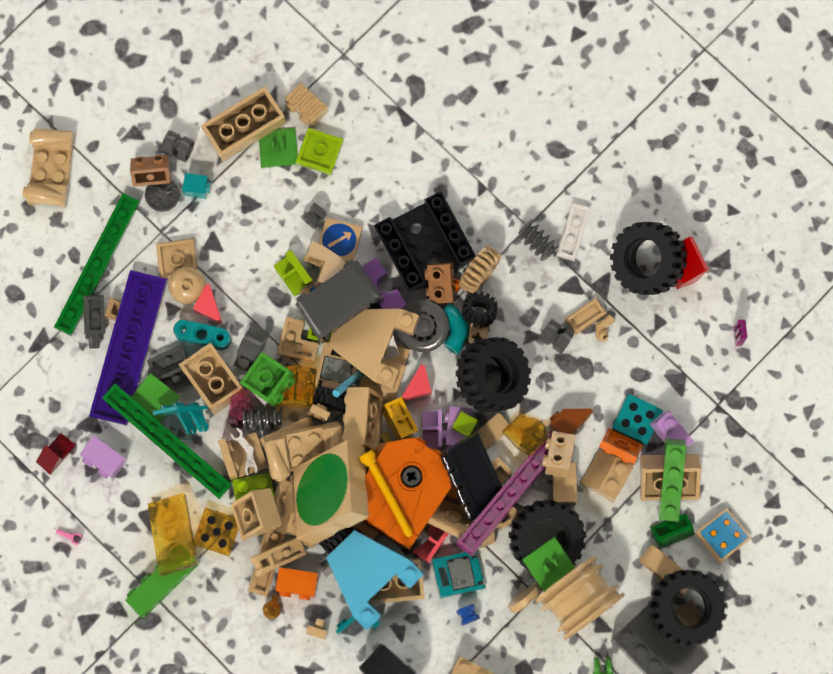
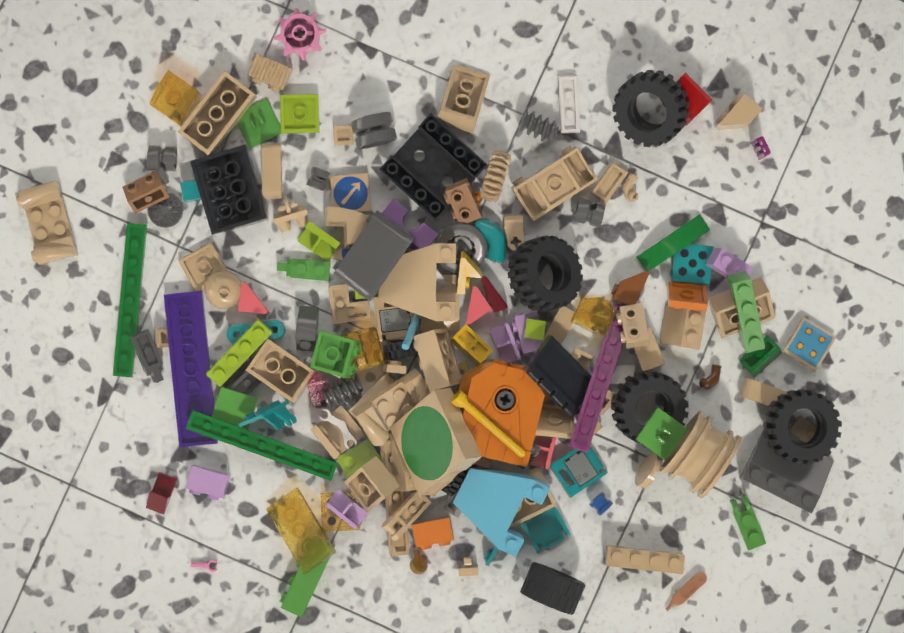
camera: 25 degrees left, 10 degrees up
(179, 346) = (239, 352): none -> lime plate
(210, 96) = (174, 98): none -> clear yellow slope
(224, 530) = (346, 509): none -> lavender panel
(228, 195) = (229, 190): none -> black slope
(267, 240) = (282, 218): none -> tan hips
(271, 295) = (306, 269): none -> bright green hinge
(274, 193) = (271, 171): none -> tan beam
(338, 75) = (290, 28): none -> bright pink brick
(352, 185) = (343, 135): none -> tan plate
(382, 188) = (374, 130): none -> dark grey wheel
(406, 619) = (545, 529): none -> teal container
(422, 345) = (467, 269): none -> yellow slope
(437, 384) = (494, 298): none -> dark red slope
(476, 190) = (463, 98): none -> tan slope
(483, 301) = (509, 224): black tyre -> none
(533, 297) = (554, 183): none -> tan piece
(618, 535) = (711, 380): none -> reddish brown arm
(626, 393) = (673, 243): none -> green slope
(731, 295) = (741, 113): none -> tan slope

